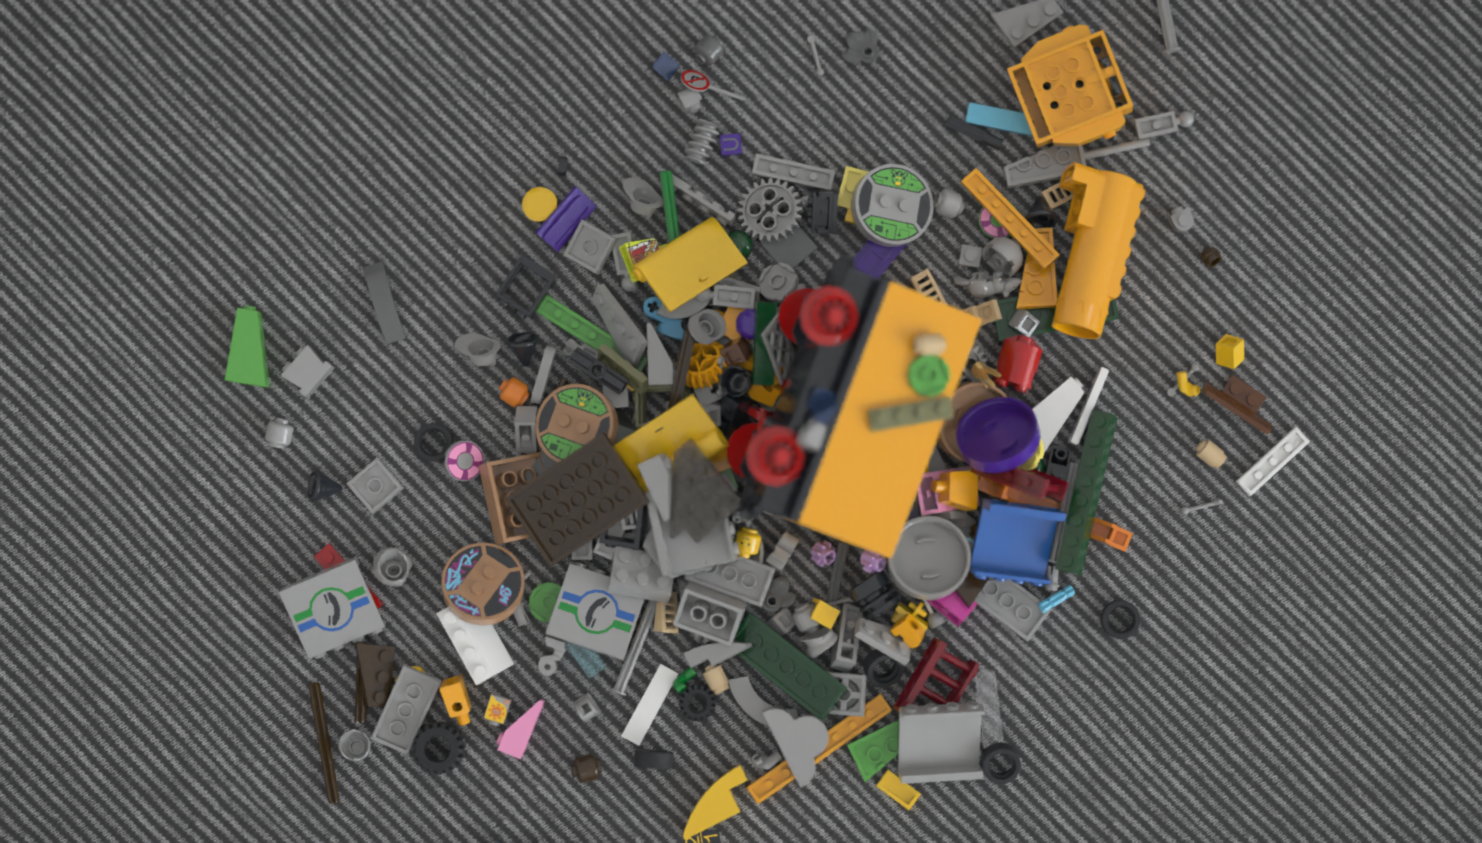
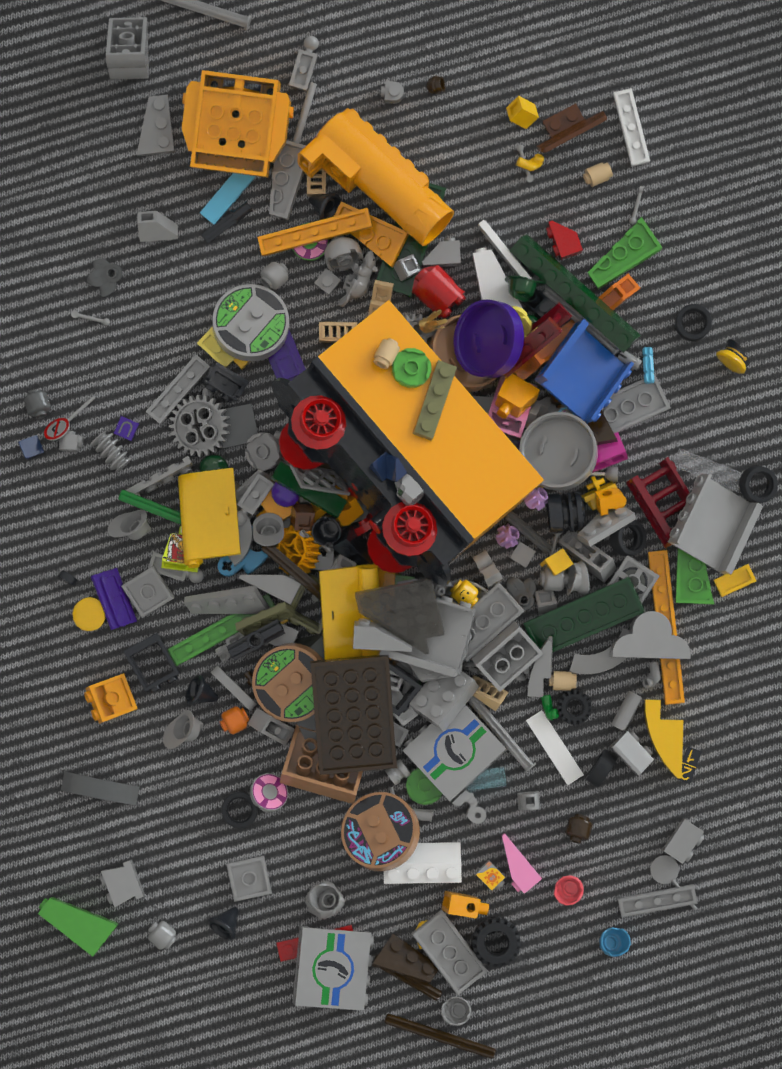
camera: 60 degrees left, 0 degrees up
(472, 266) = (110, 698): none -> light orange plate
(523, 790) = (568, 890): none -> coral hair
(546, 571) = (398, 773): none -> light grey wheel
(683, 780) = (632, 753): none -> light grey slope
(720, 754) = (626, 711): none -> light grey brick
(814, 577) = (522, 554): none -> light grey tile
(933, 69) = (155, 227): none -> light grey slope
(1055, 351) = (444, 254): none -> light grey slope
(1064, 440) = (522, 287): none -> dark green piece
(1108, 675) = (733, 357): none -> yellow piece
(1131, 457) = (565, 240): none -> red slope
(1153, 523) = (629, 252): none -> bright green wing

